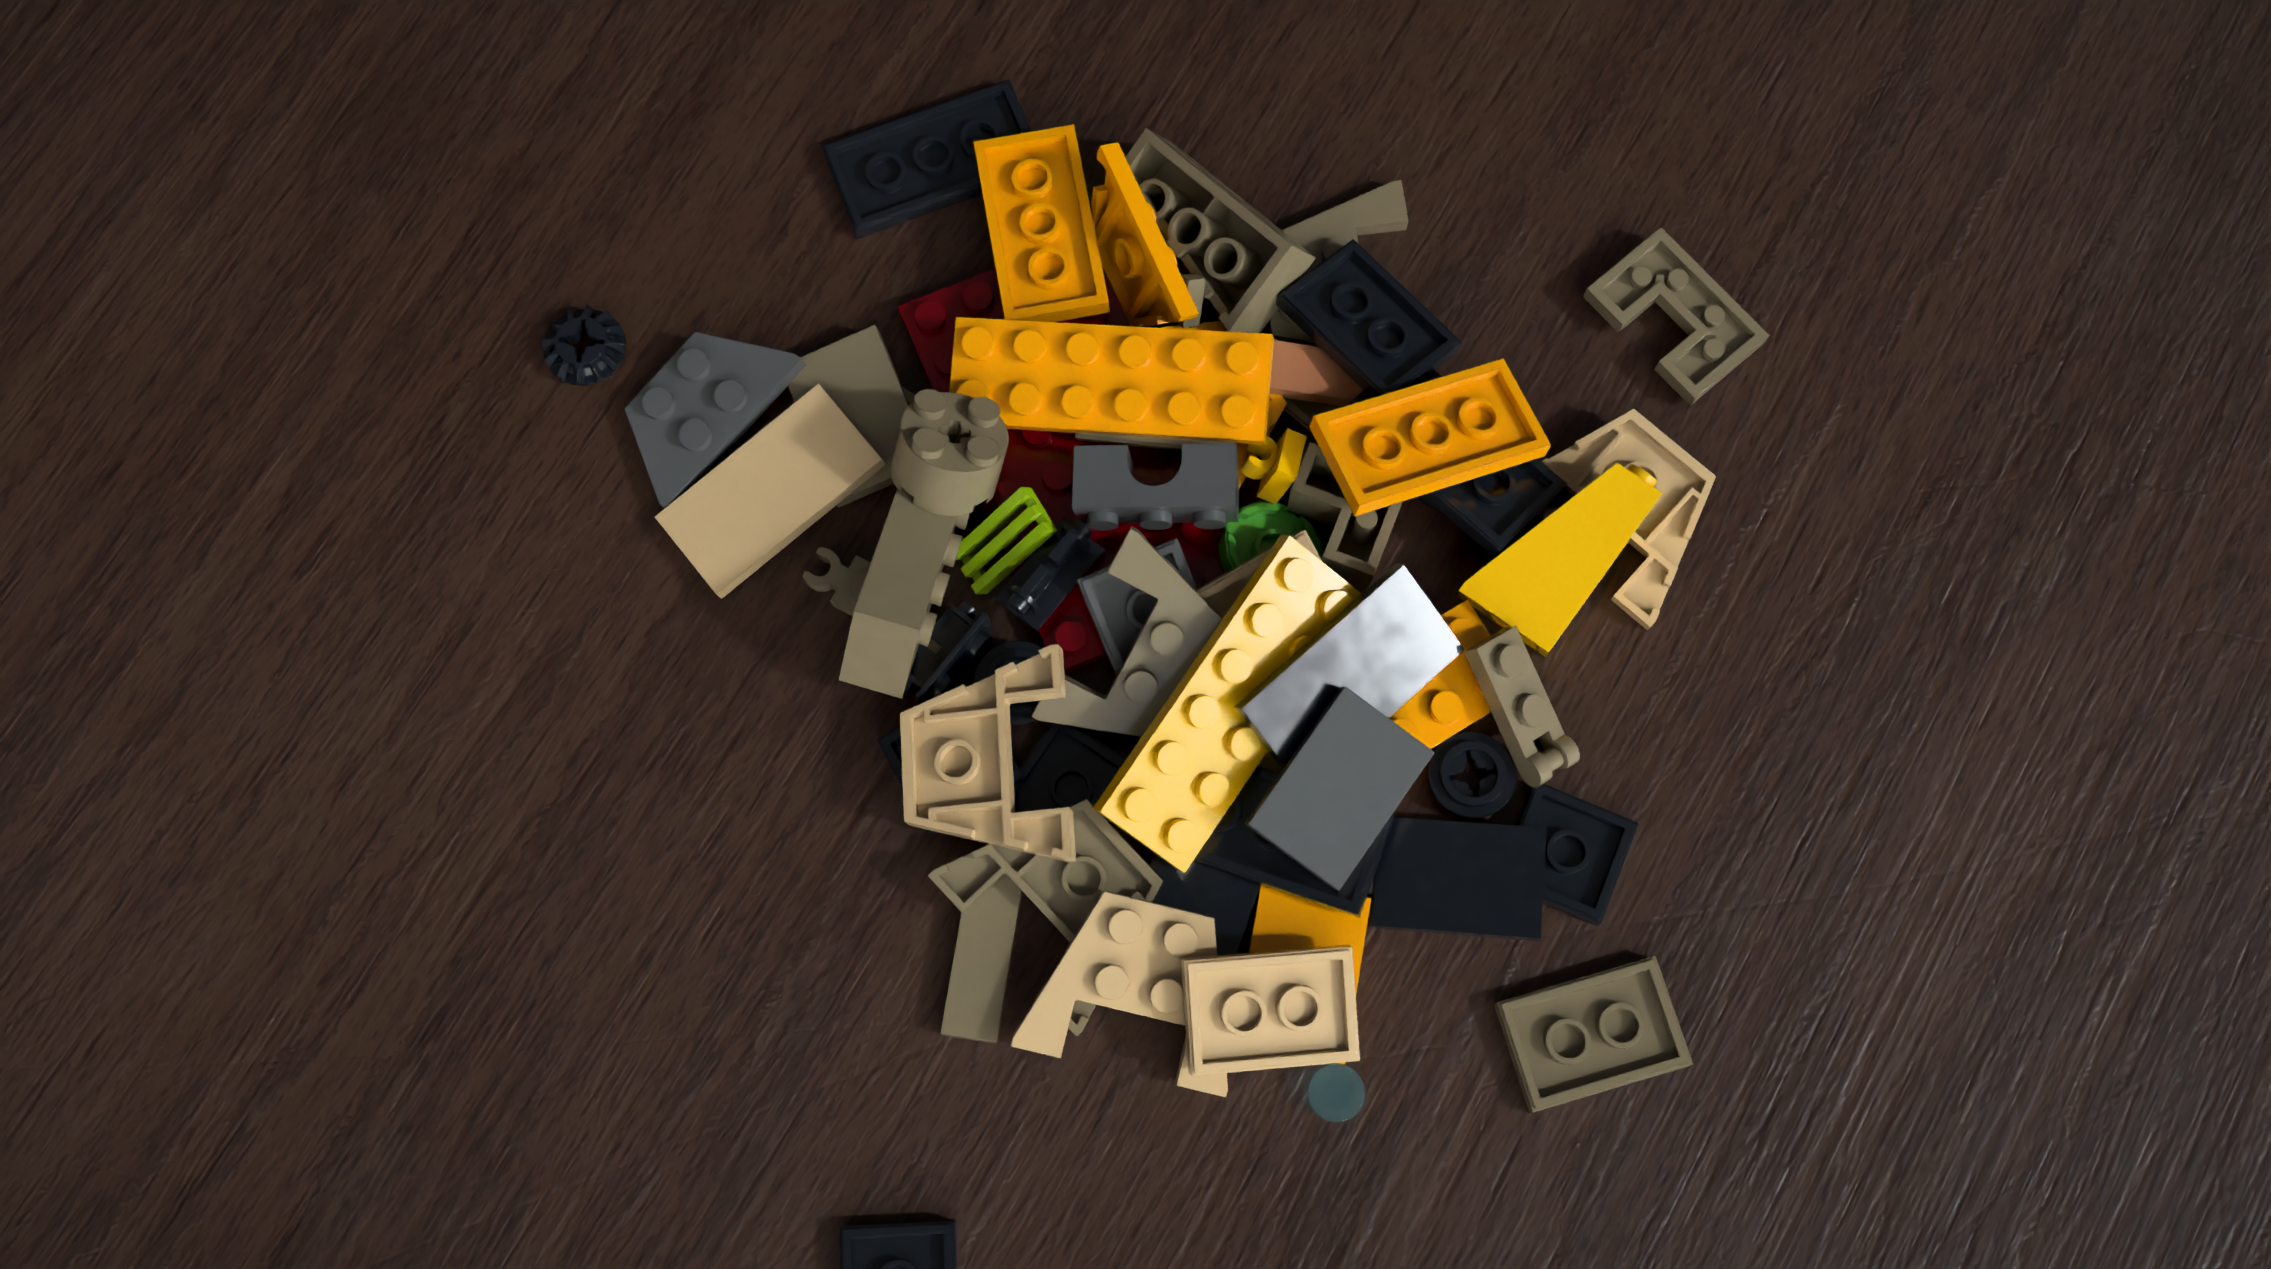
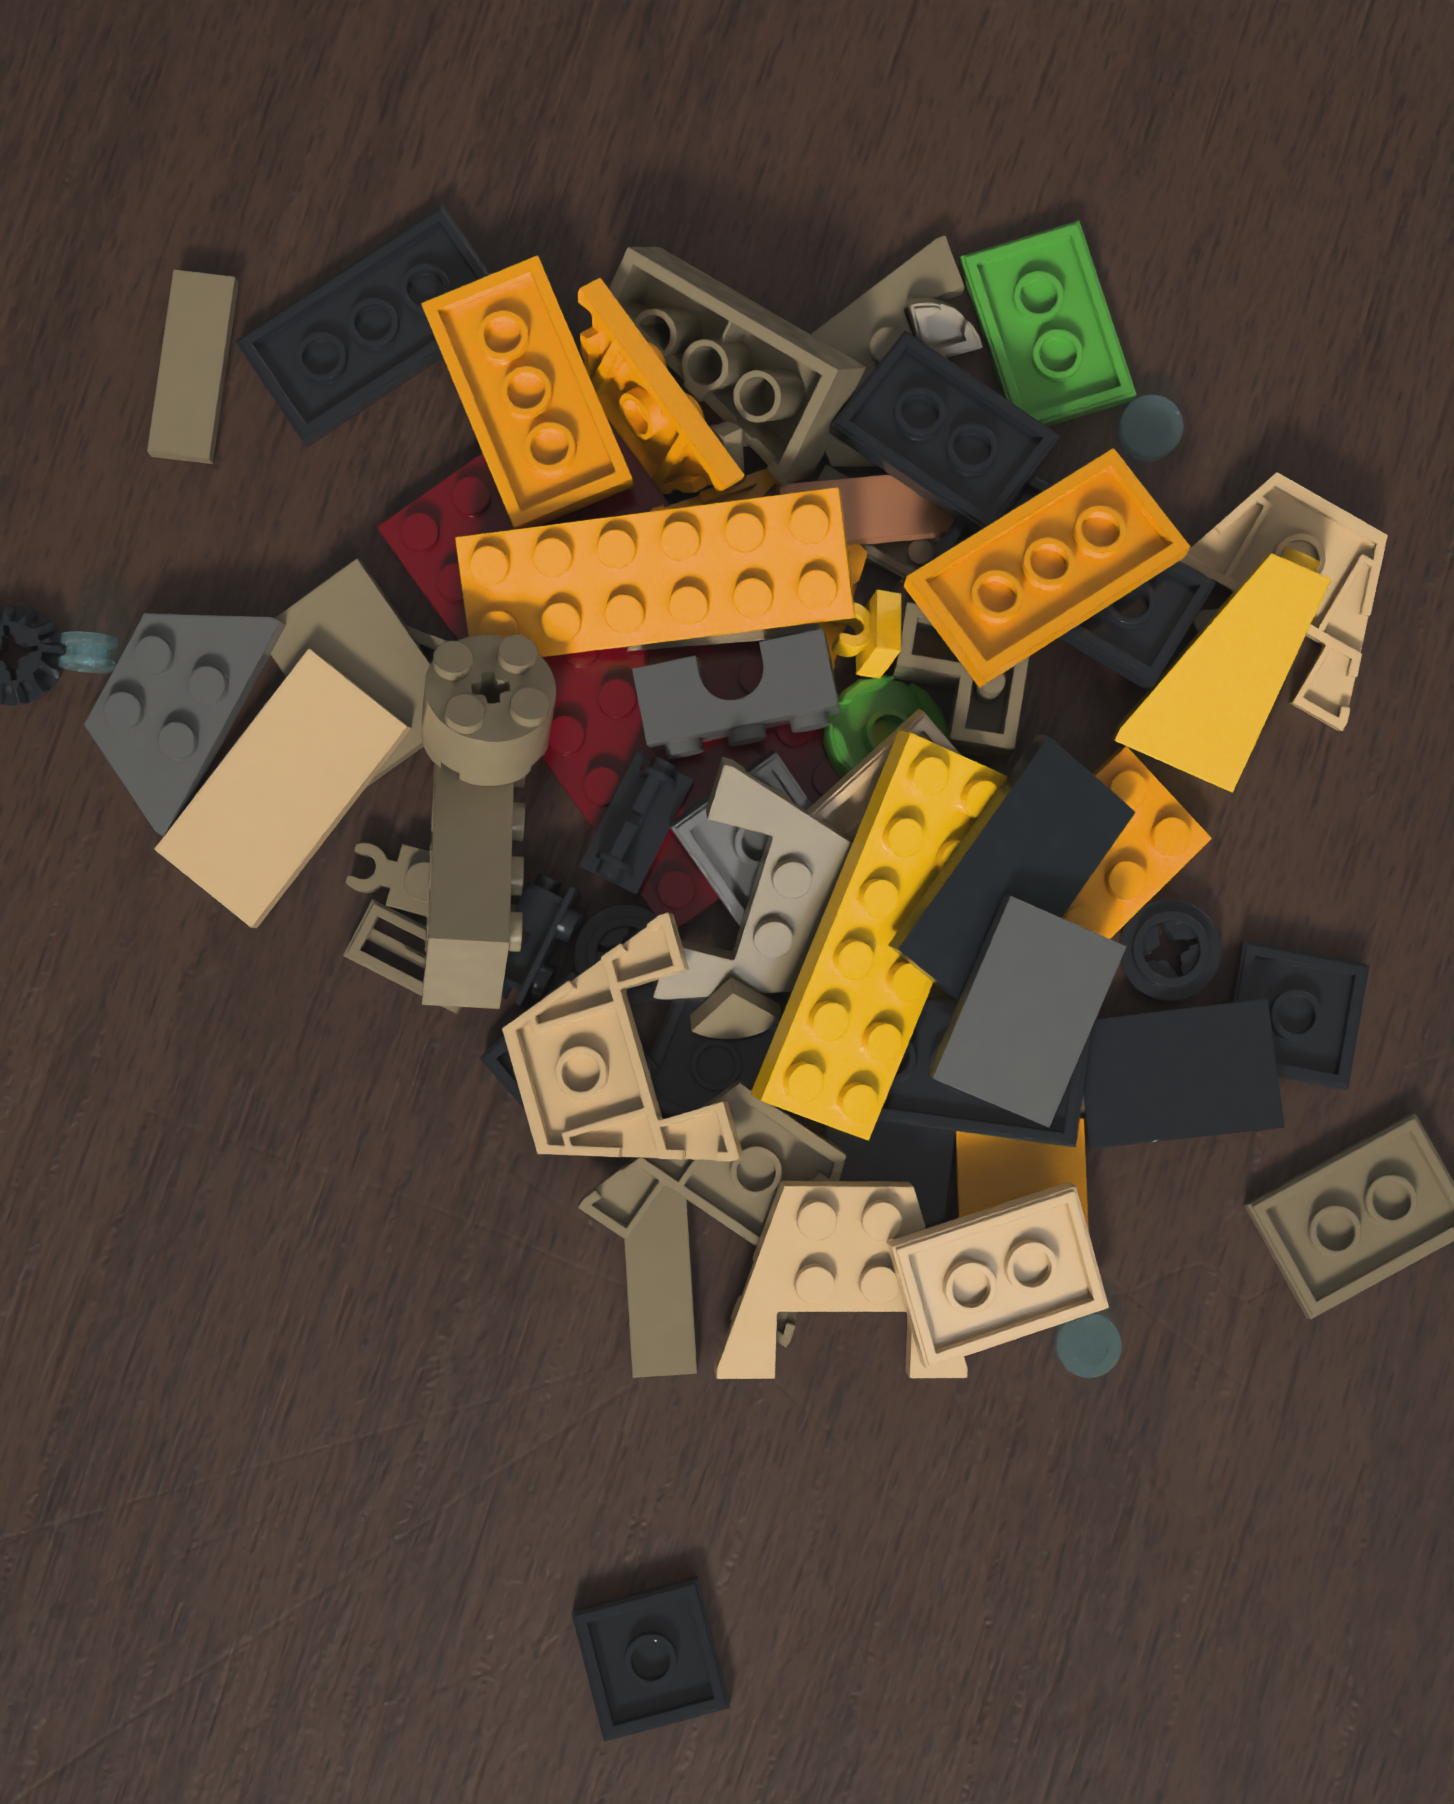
camera: 10 degrees left, 10 degrees up
(642, 353) = (87, 652): none -> clear light blue bush
(783, 159) = (193, 366): none -> dark tan tile
(809, 620) = (367, 932): none -> dark tan tile
(974, 564) = (543, 824): lime tile -> none
(1095, 744) = (735, 1013): none -> dark tan tile
(1385, 246) = (942, 327): none -> dark tan tile
(1470, 264) = (1048, 325): none -> bright green tile
(1521, 706) = (1211, 860): dark tan plate -> none
(1537, 359) = (1150, 427): none -> clear light blue tile
(1716, 325) = (1290, 292): dark tan plate -> none

